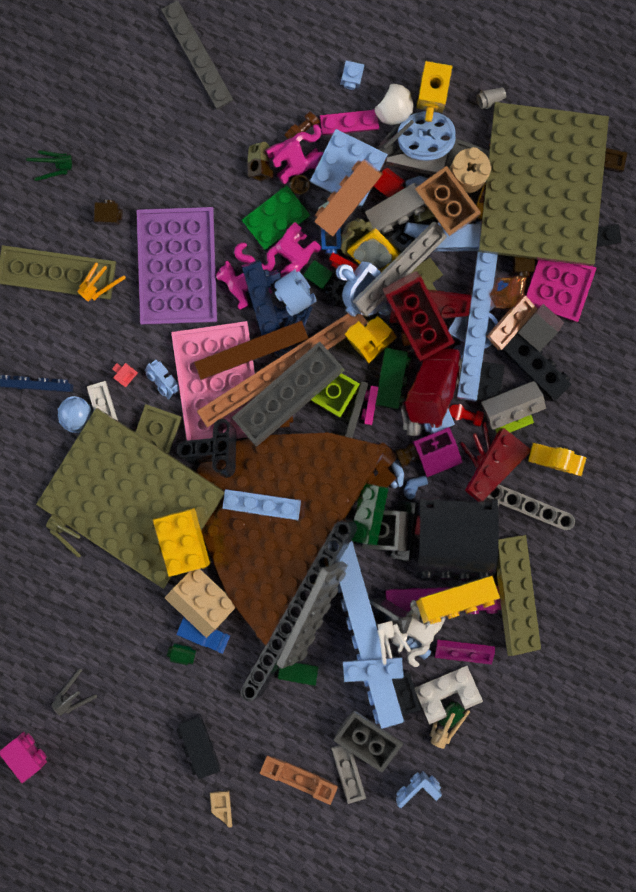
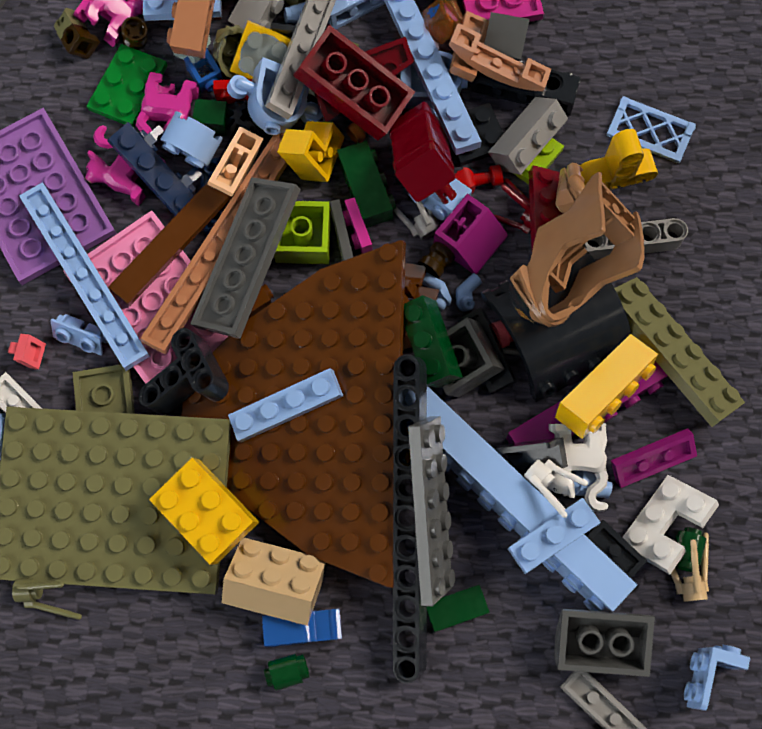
camera: 25 degrees left, 15 degrees down
(182, 344) = (84, 277): none -> light blue plate
(315, 323) = (236, 162): none -> light nougat slope
(489, 510) = (558, 244): none -> medium nougat piece
(521, 349) = (496, 64): none -> nougat slope
(582, 441) = (668, 119): none -> light blue window

